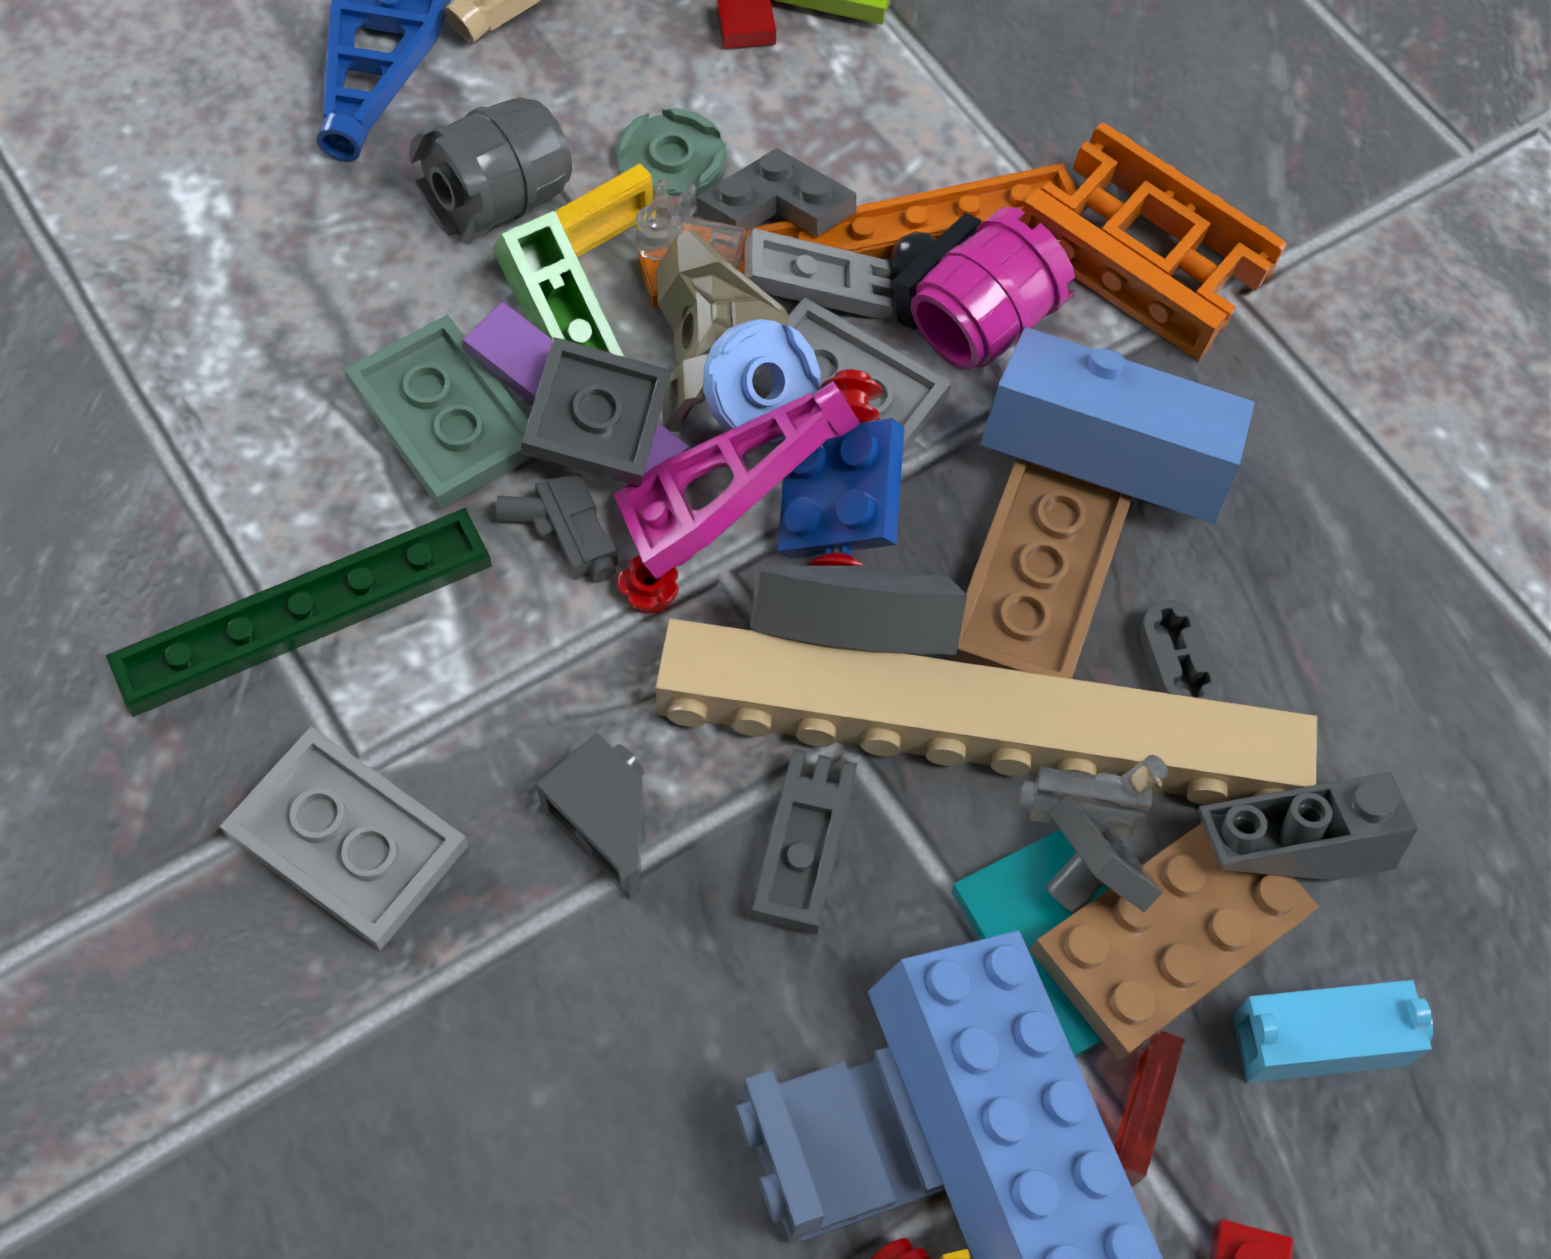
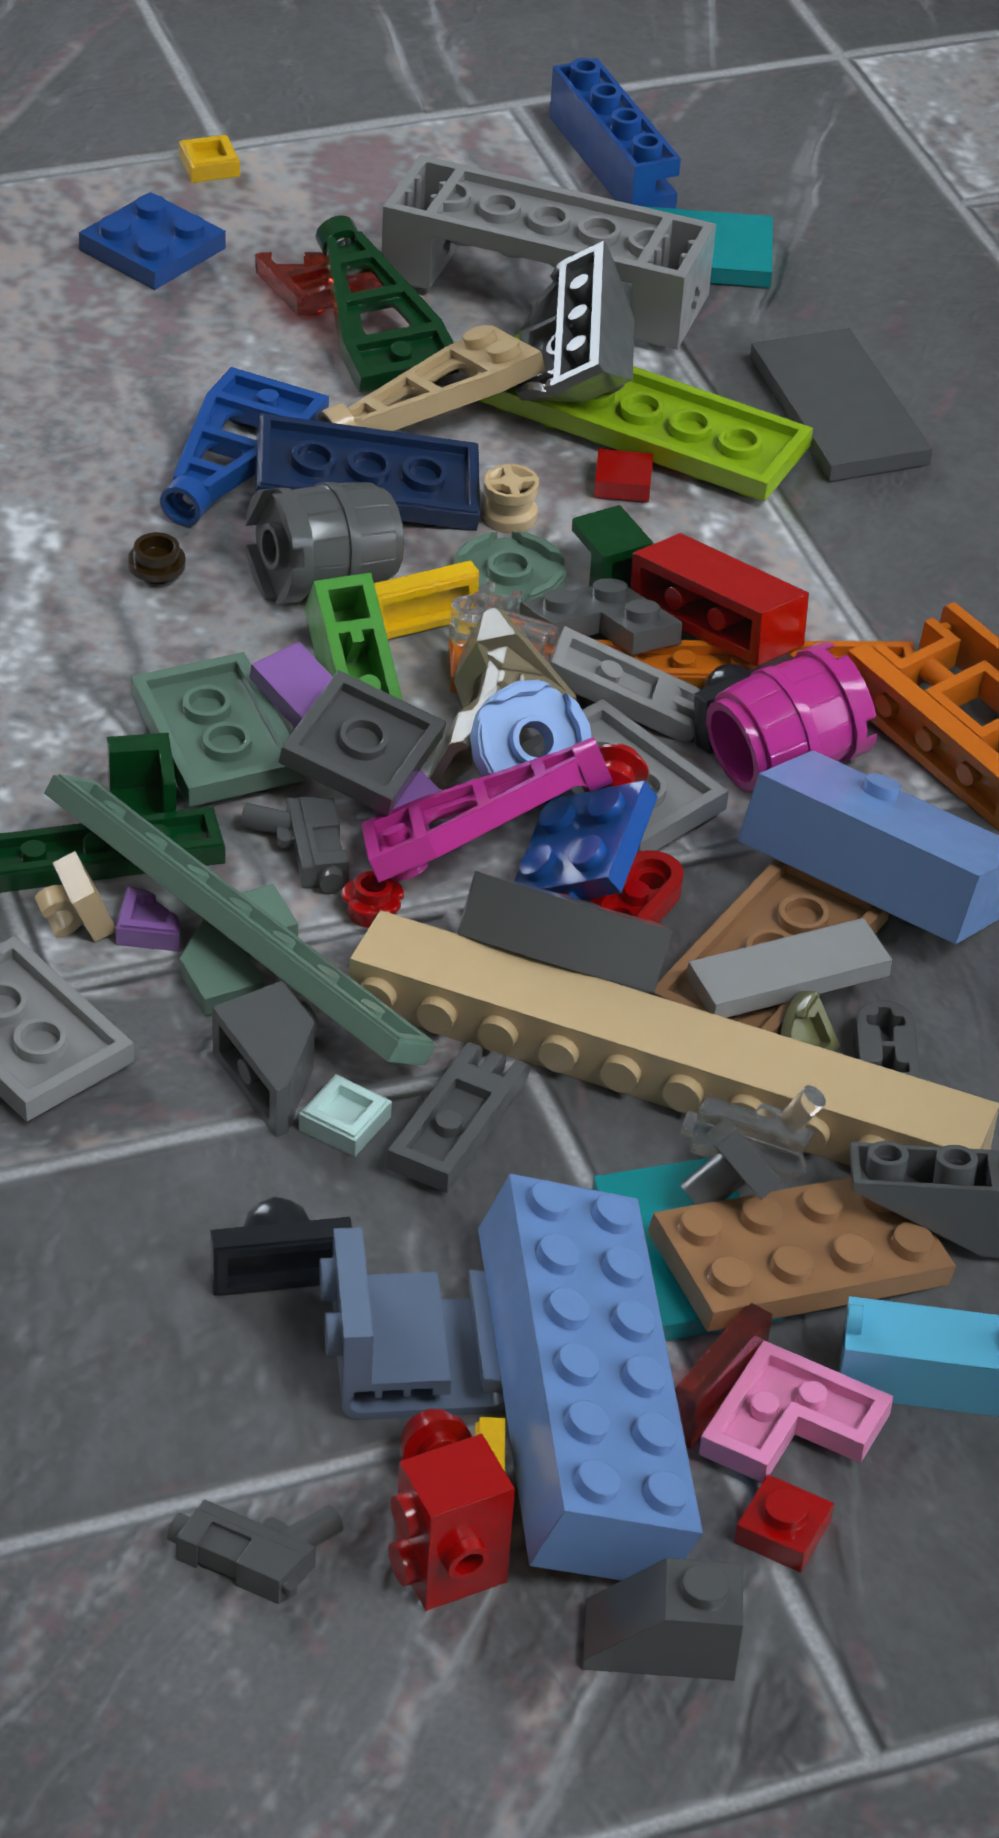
camera: 15 degrees right, 20 degrees down
(331, 212) = (156, 558): none -> dark brown plate
(362, 662) = (74, 902): none -> tan tile
(386, 492) = (142, 772): none -> dark green panel
(435, 663) = (146, 922): none -> medium lavender tile
(474, 64) = (426, 475): none -> dark blue tile
(515, 696) = (217, 966): none -> sand green tile
(533, 660) = (242, 921): none -> sand green tile
(650, 71) = (510, 498): none -> tan wheel
(678, 1060) = (272, 1250): none -> black tile
(692, 860) = (345, 1115): none -> light aqua tile
(768, 111) = (611, 540): none -> dark green panel
(883, 156) = (722, 598): none -> red brick
(913, 528) = (650, 888): none -> red plate
(1072, 593) = (782, 967): none -> light grey tile
(1105, 654) = (809, 1022): none -> olive tile
(1209, 1120) = (789, 1397): none -> bright pink plate

